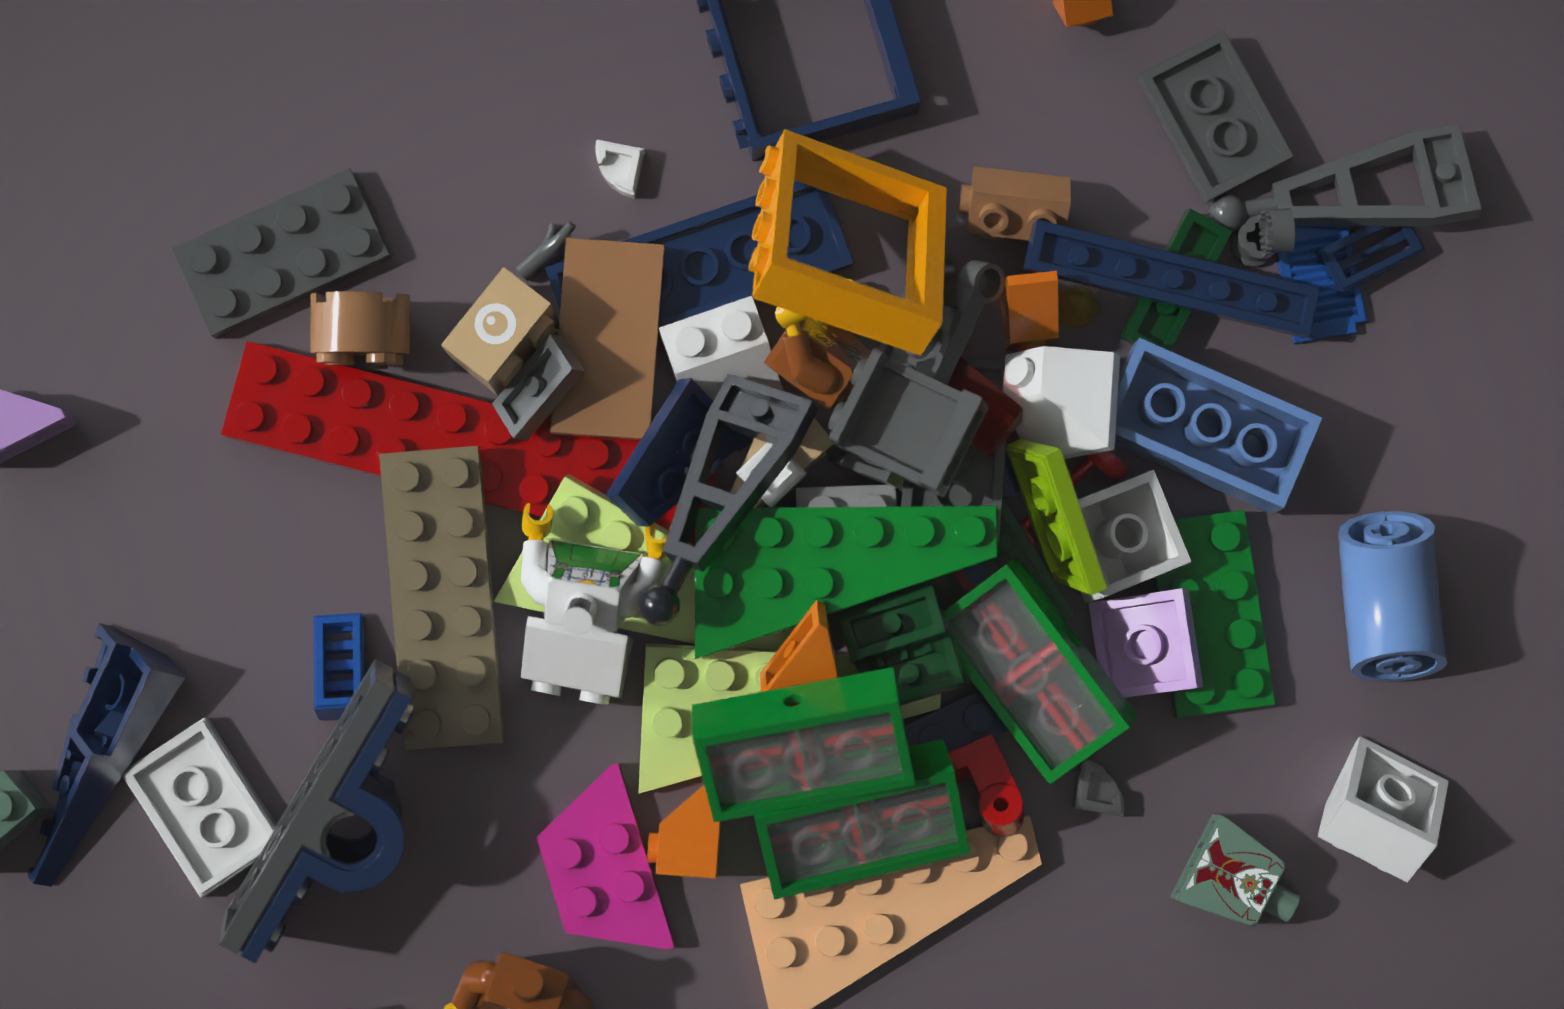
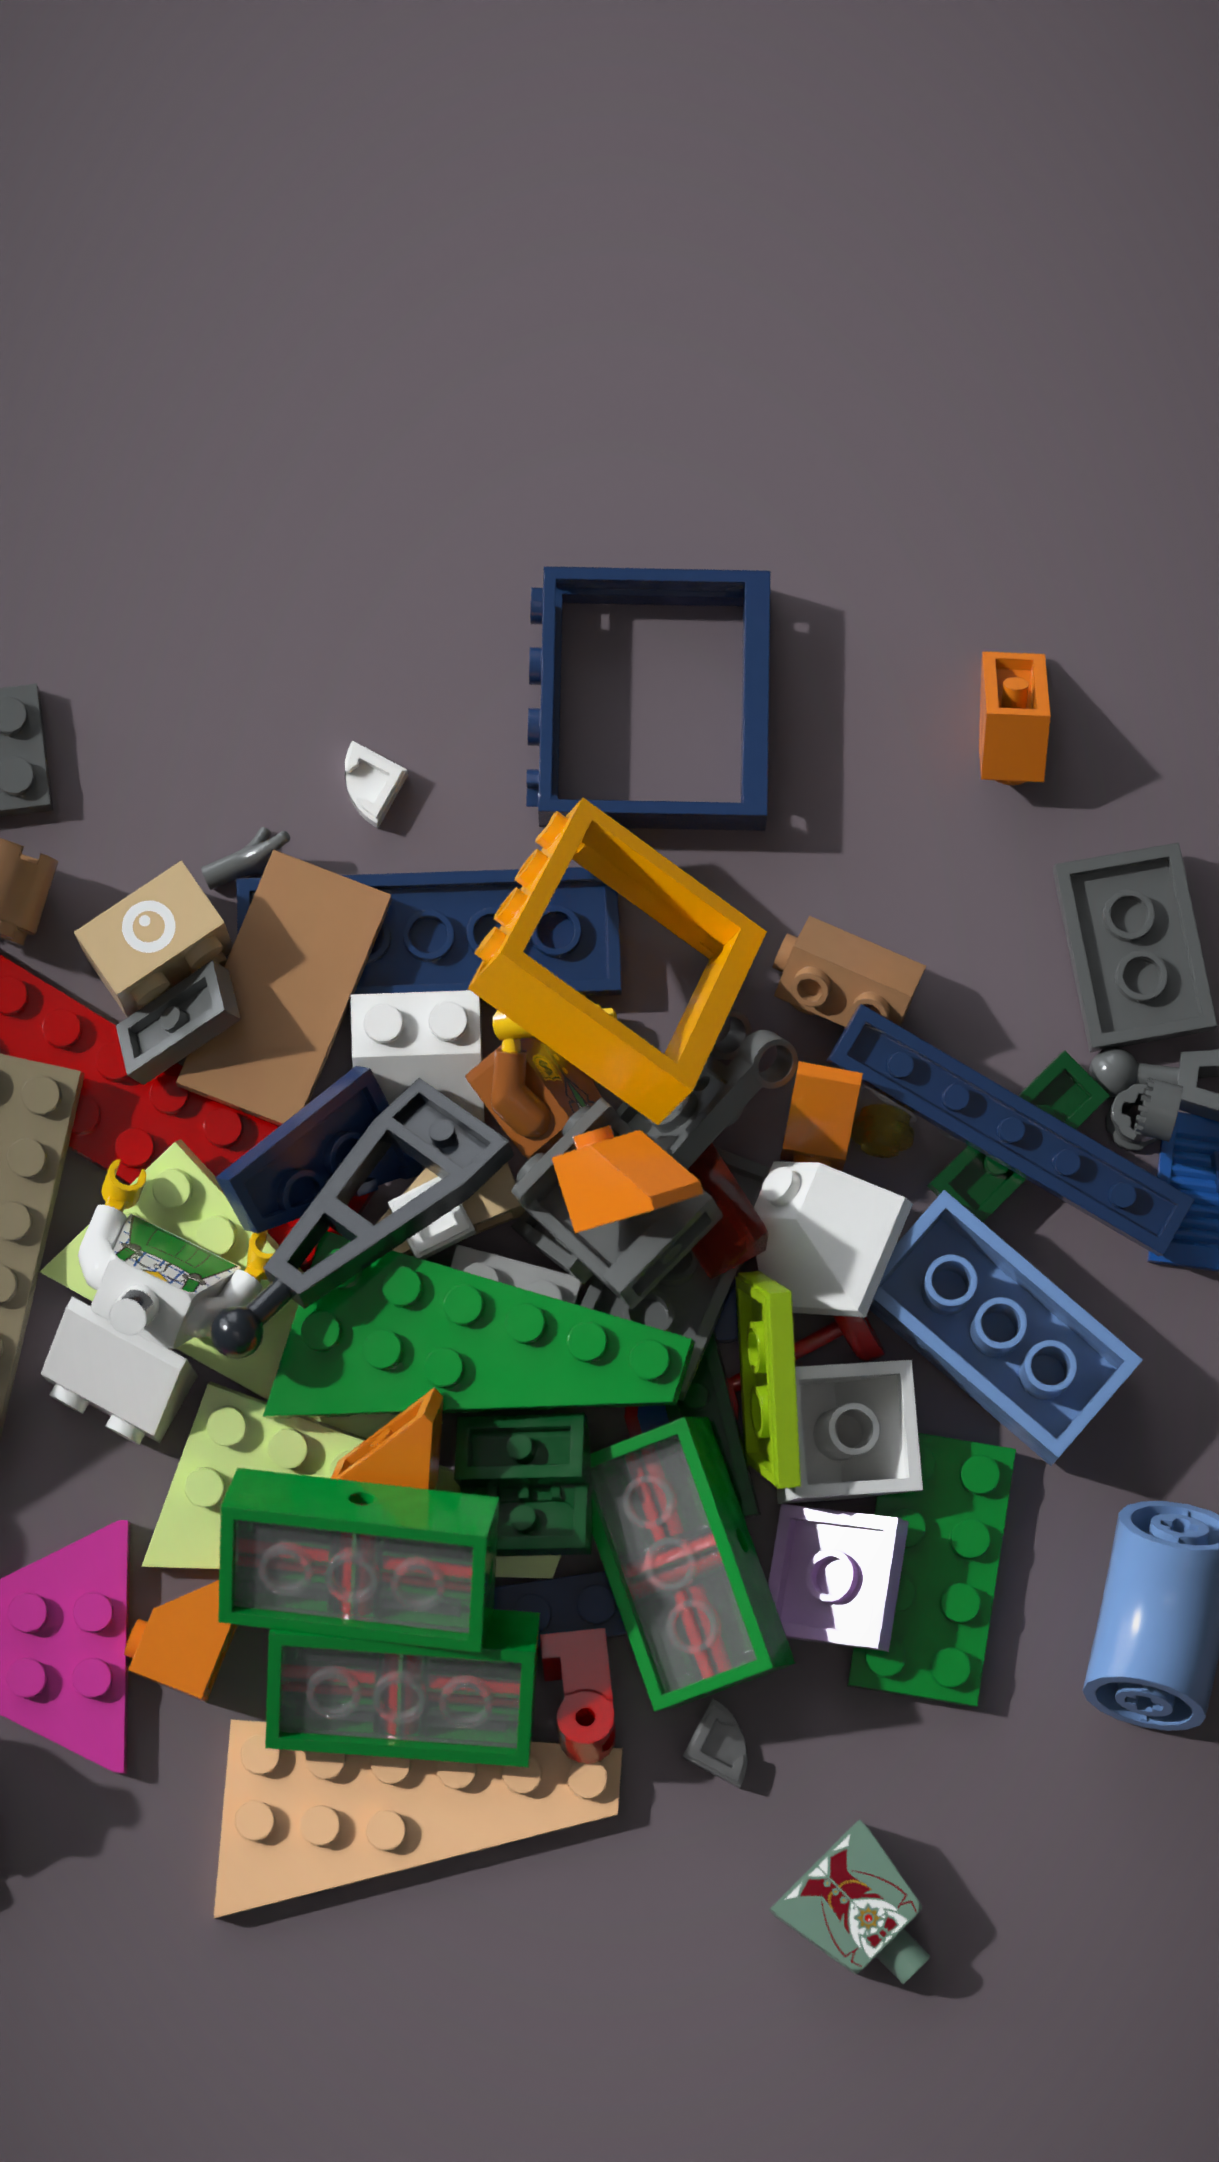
camera: 20 degrees right, 5 degrees down
(910, 404) = (619, 1178): none -> orange slope
(1384, 810) = (1073, 1881): white slope -> none

